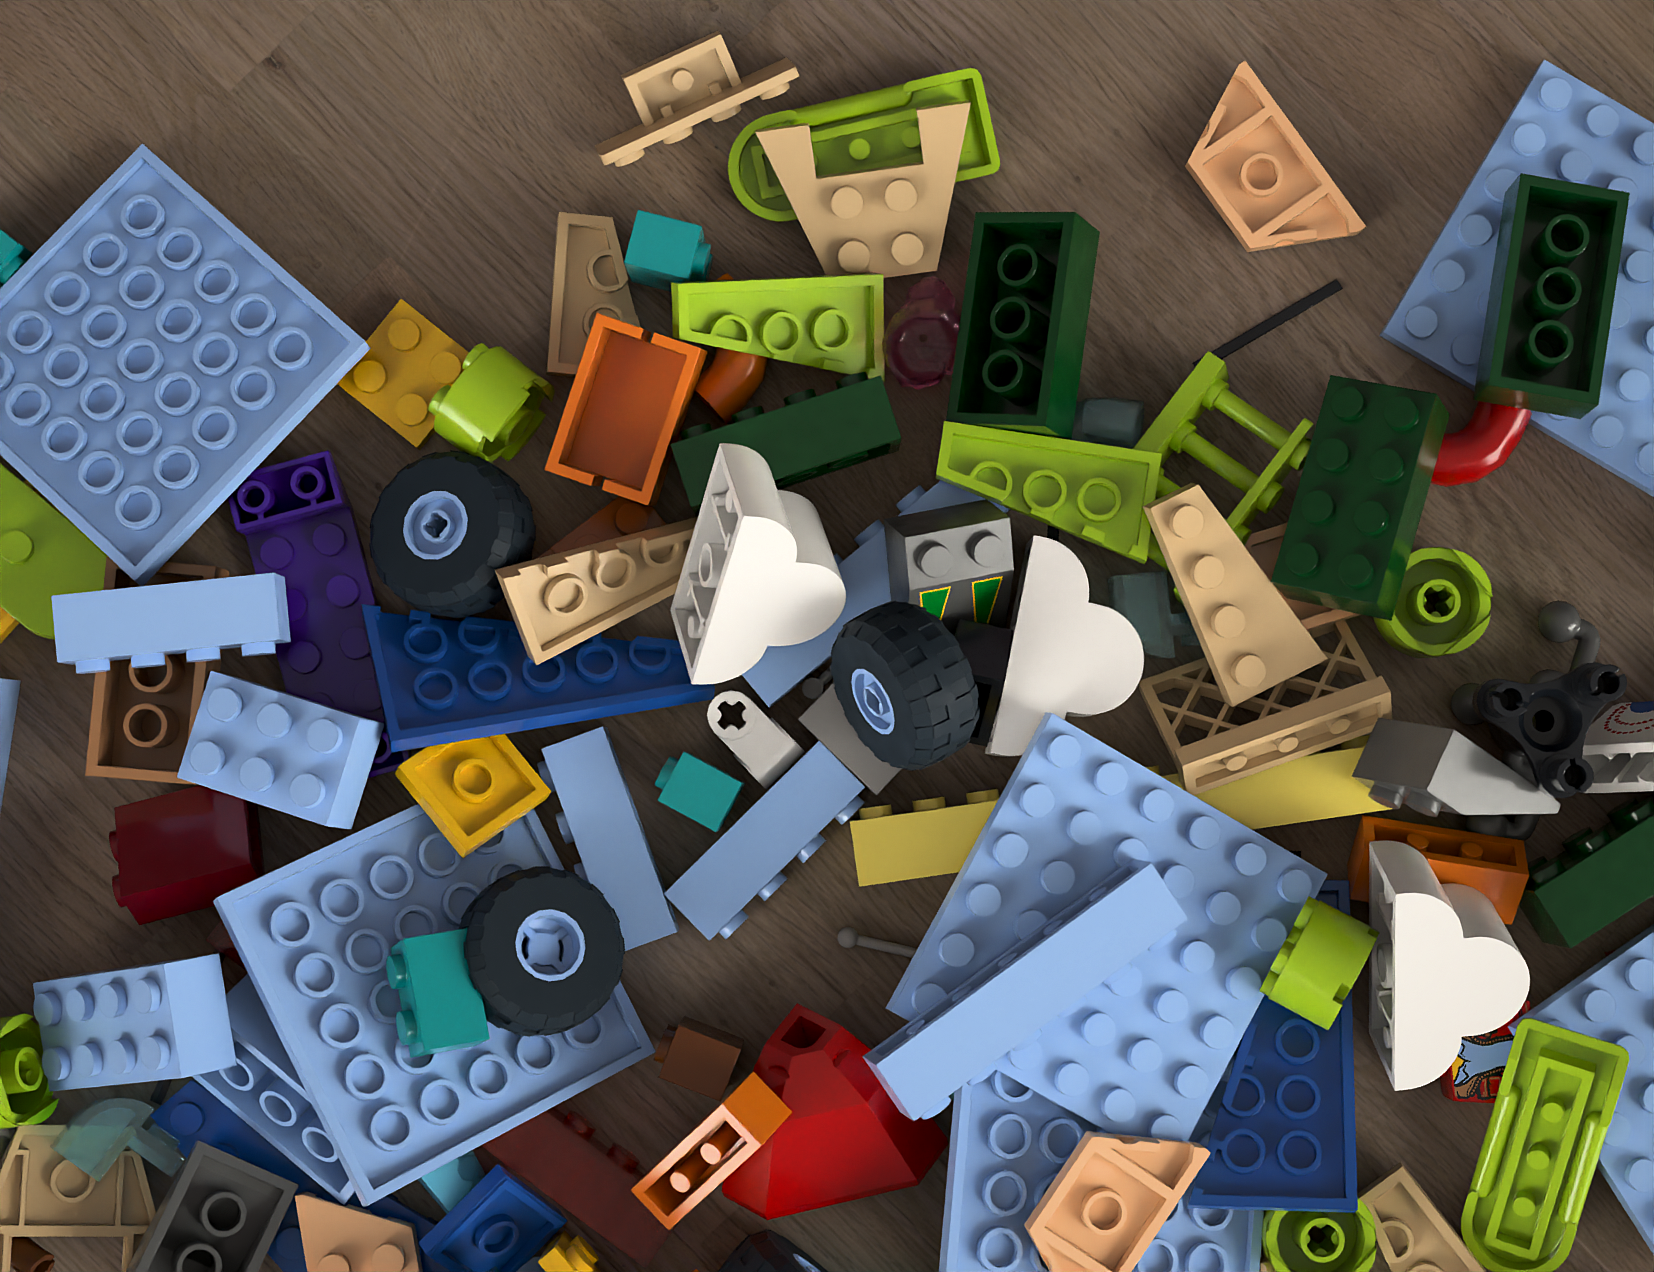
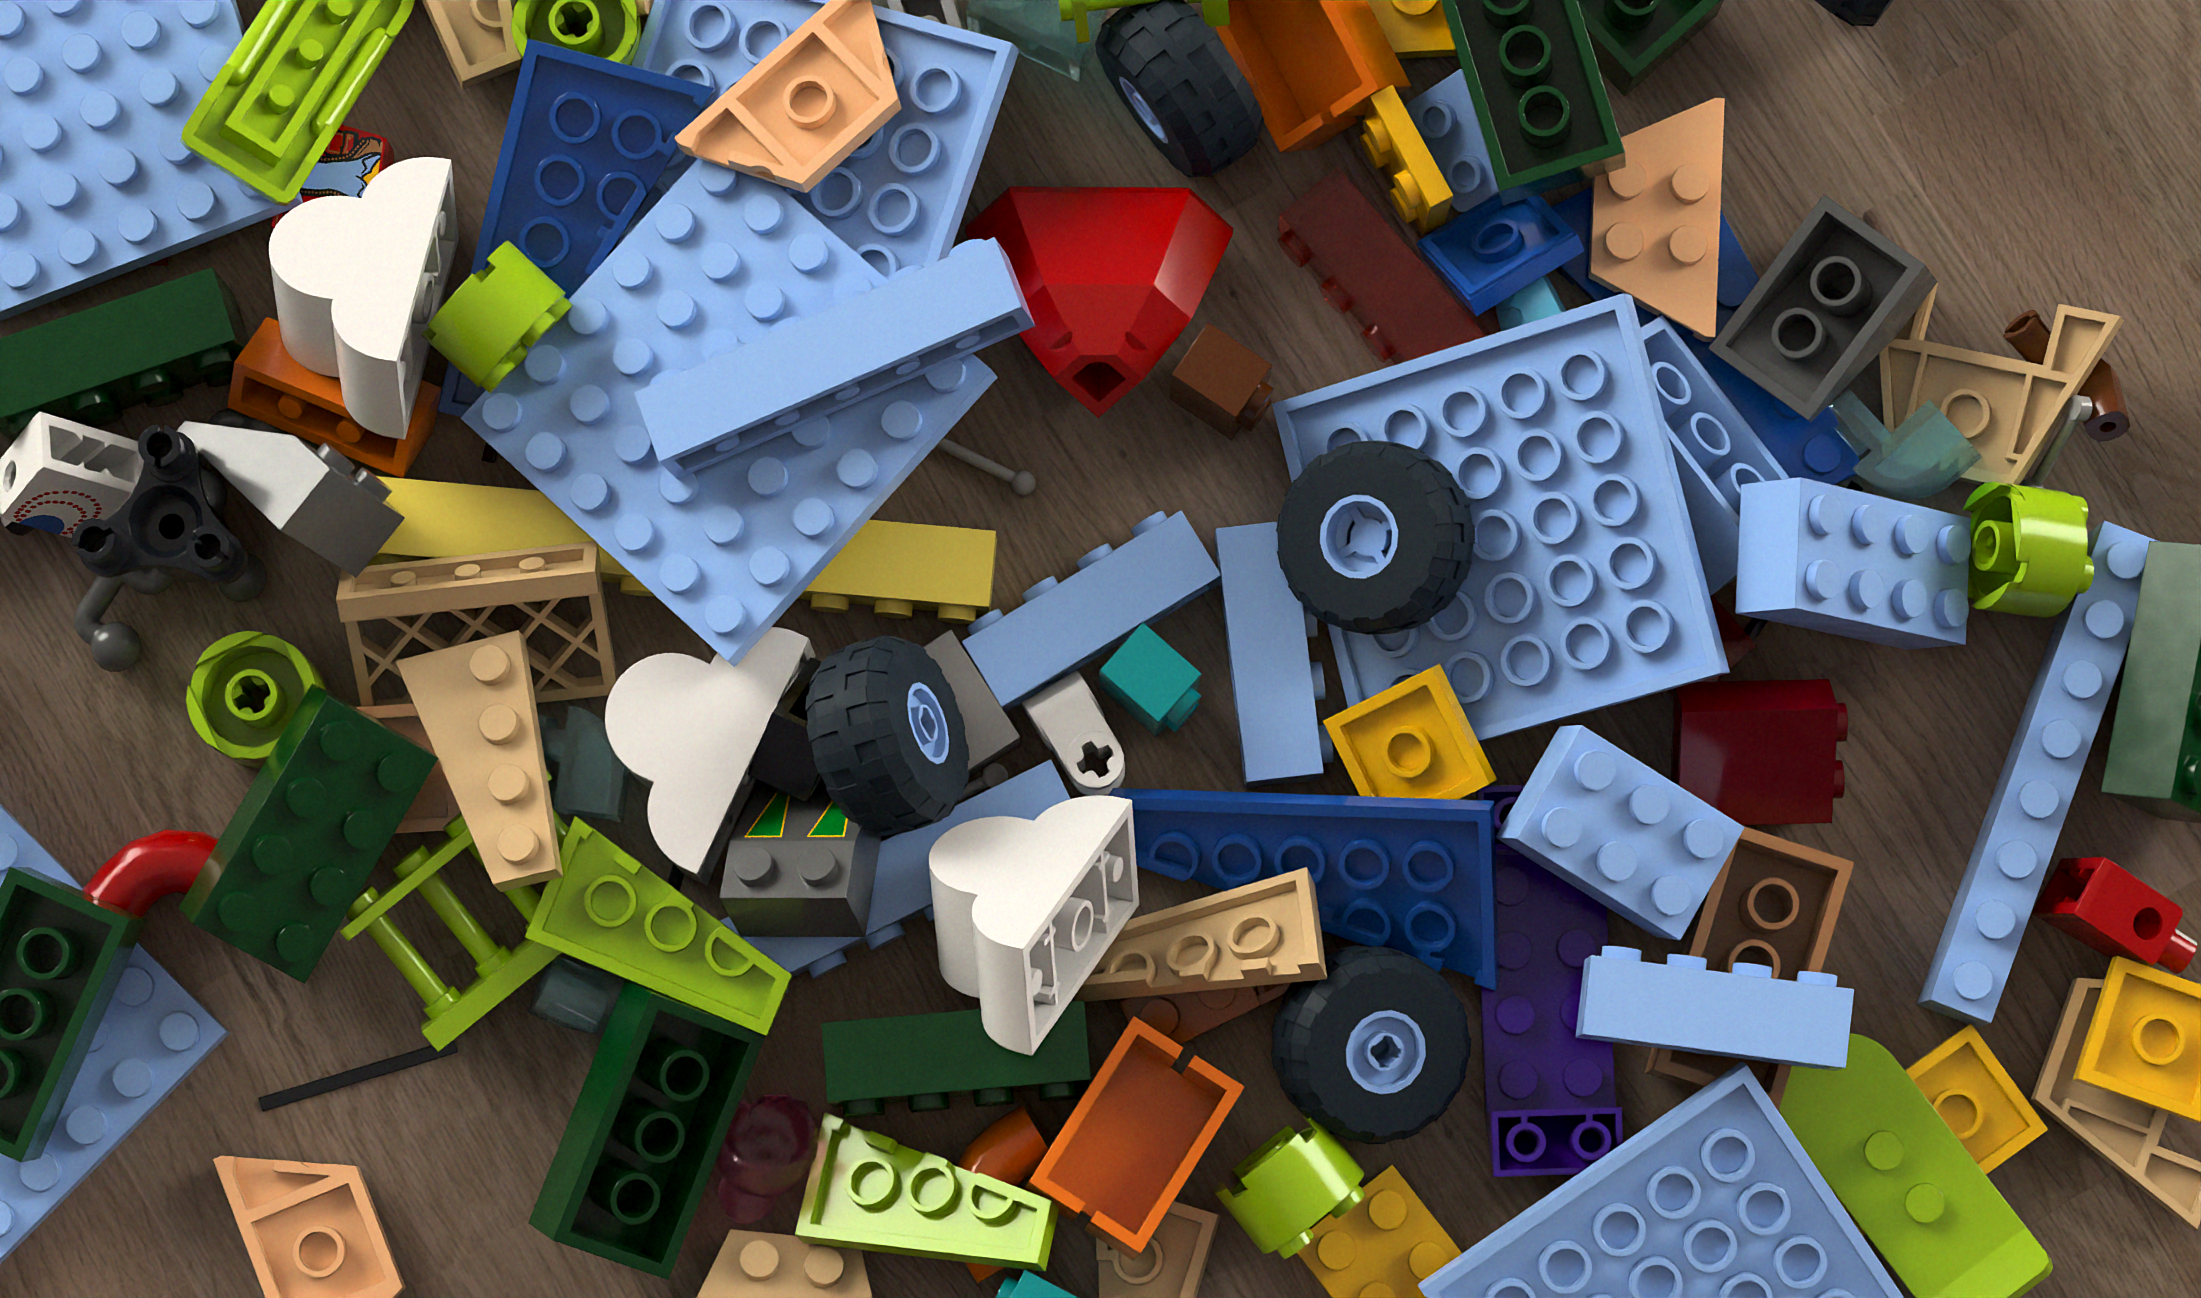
camera: 170 degrees left, 5 degrees down
(436, 994) = (1500, 511): teal brick -> none
(711, 1151) = (1231, 271): orange brick -> none

